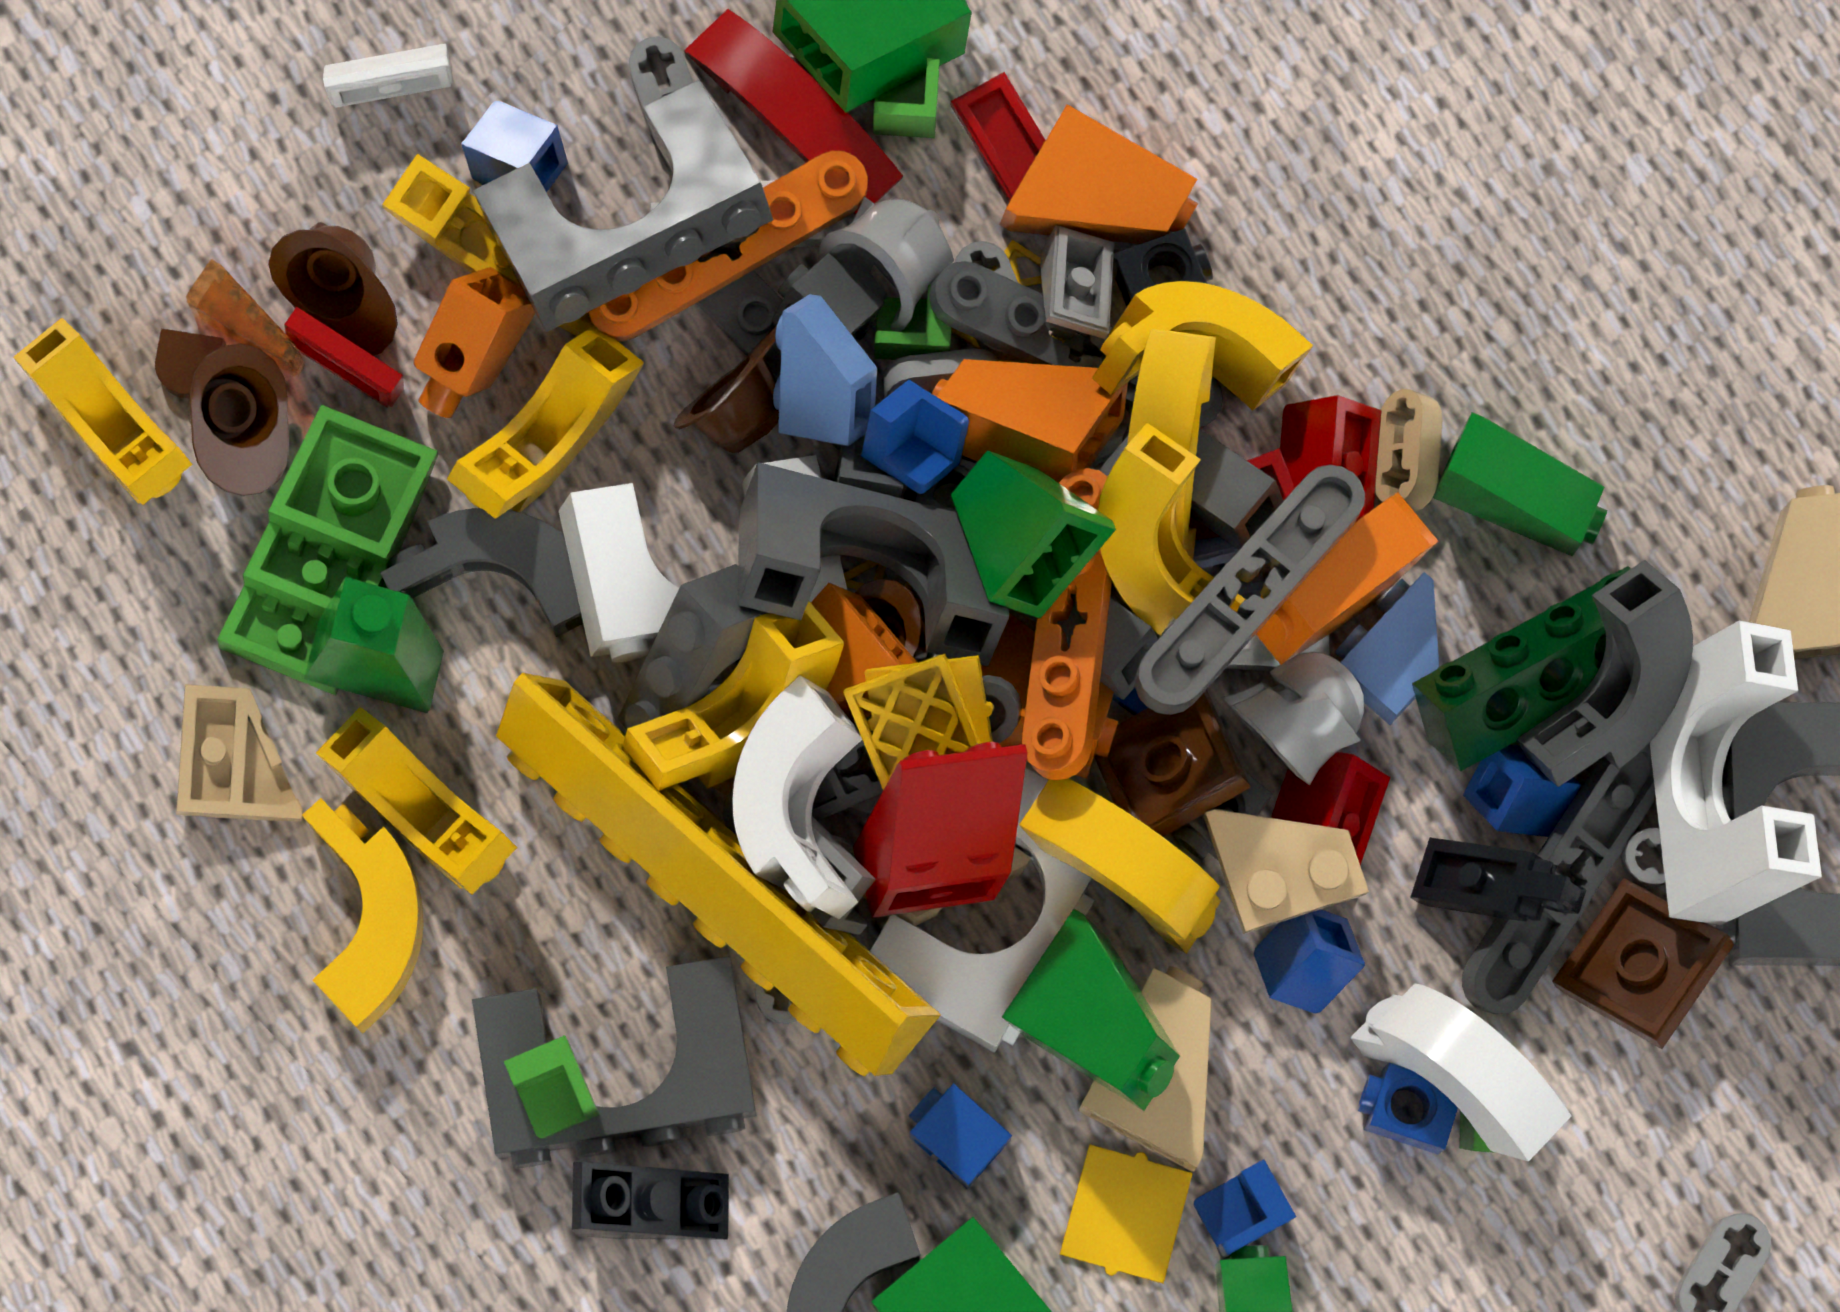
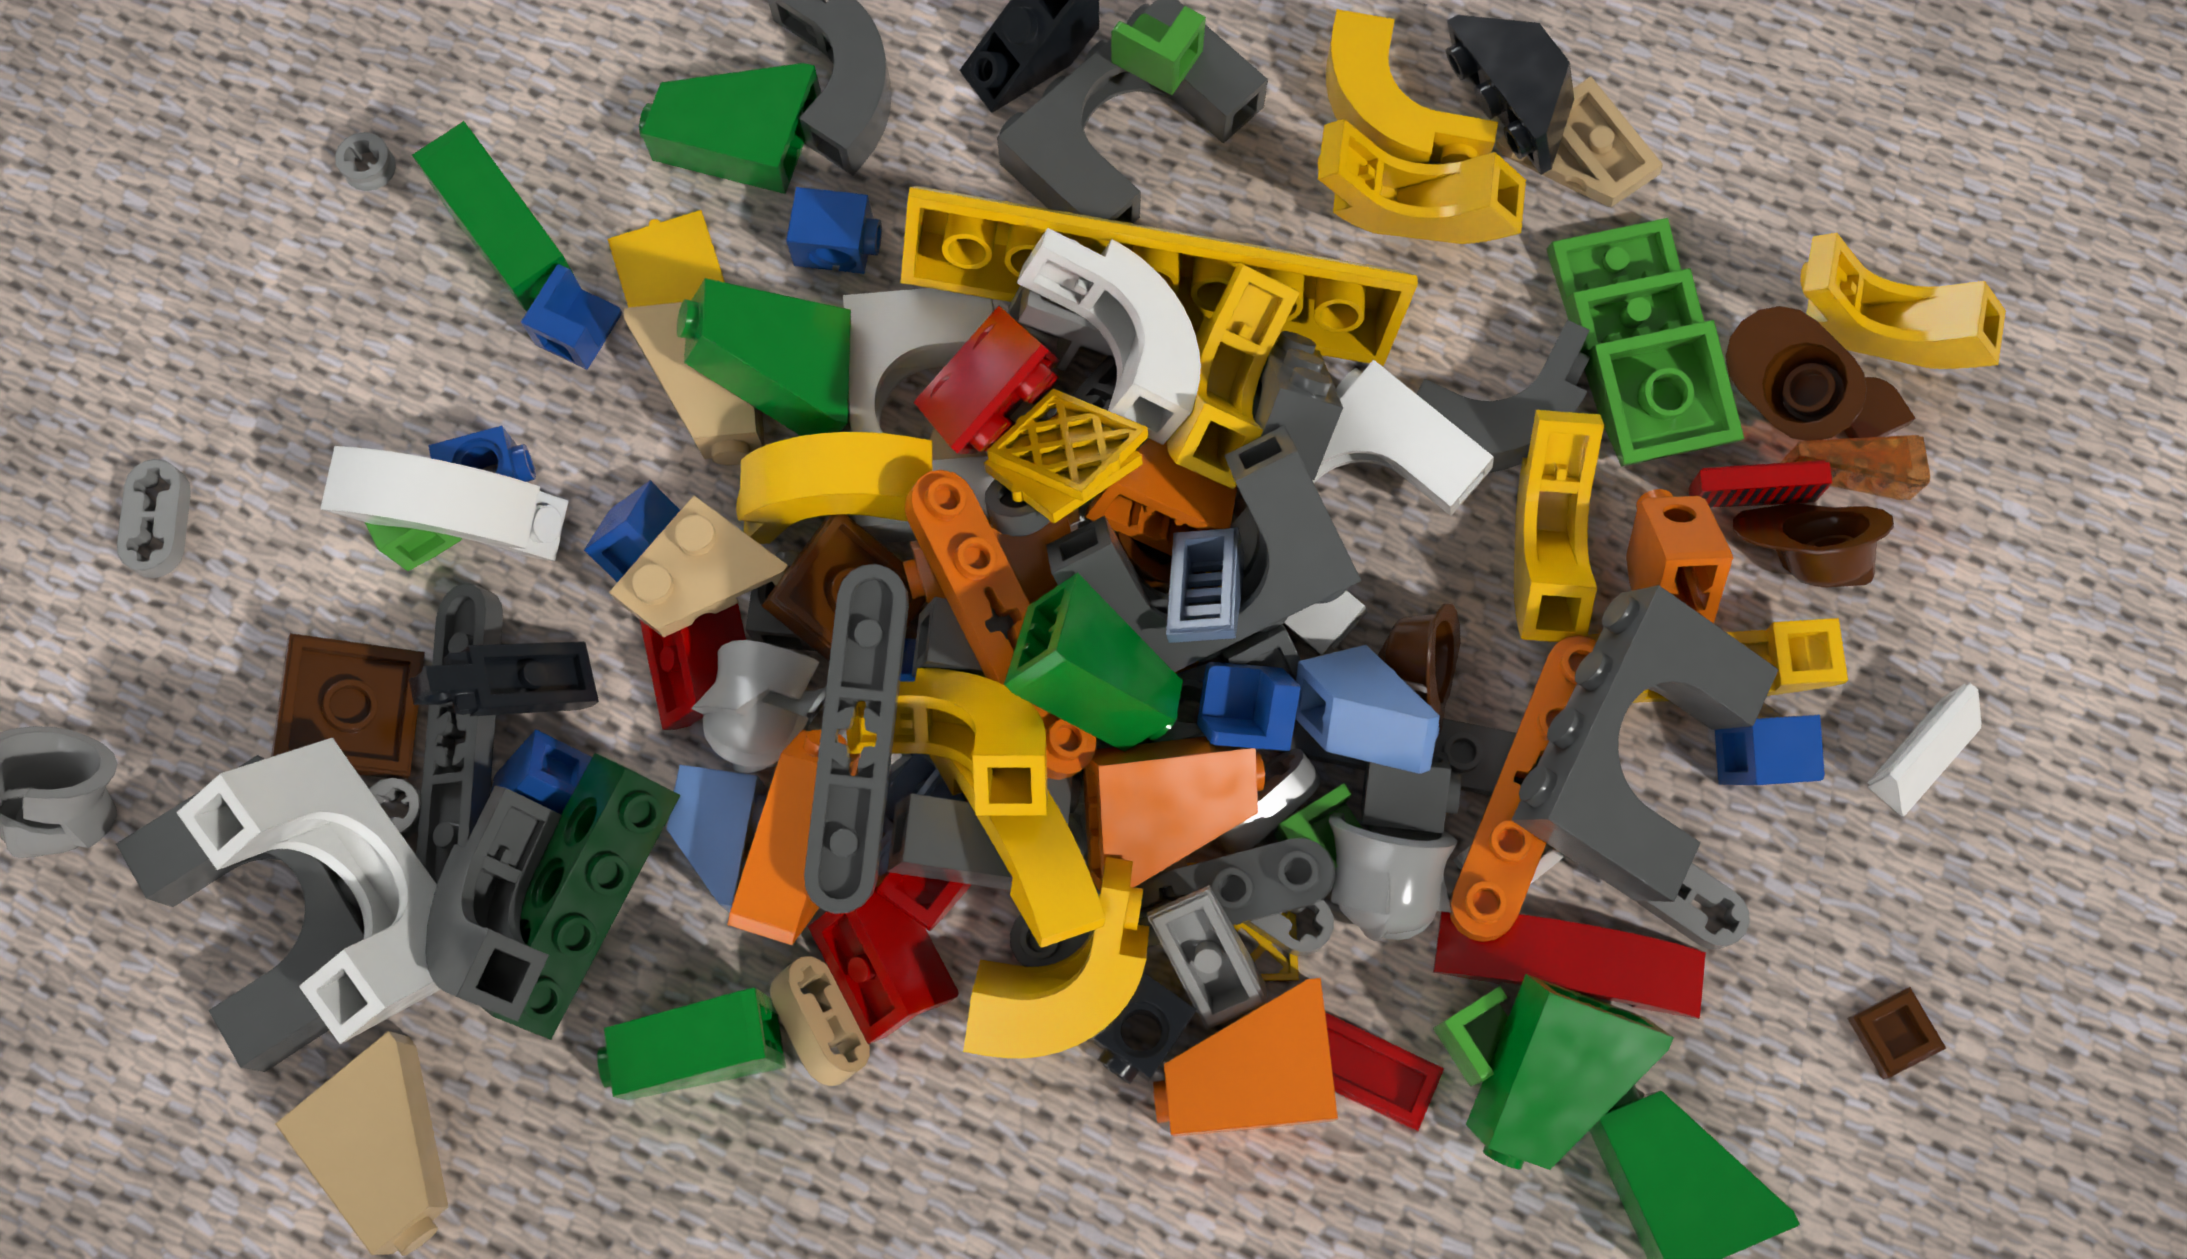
camera: 150 degrees right, 5 degrees down
(250, 841) = (1517, 78): none -> black slope
(376, 647) = (1544, 261): green slope -> none
(856, 585) = (1201, 553): none -> sand blue slope

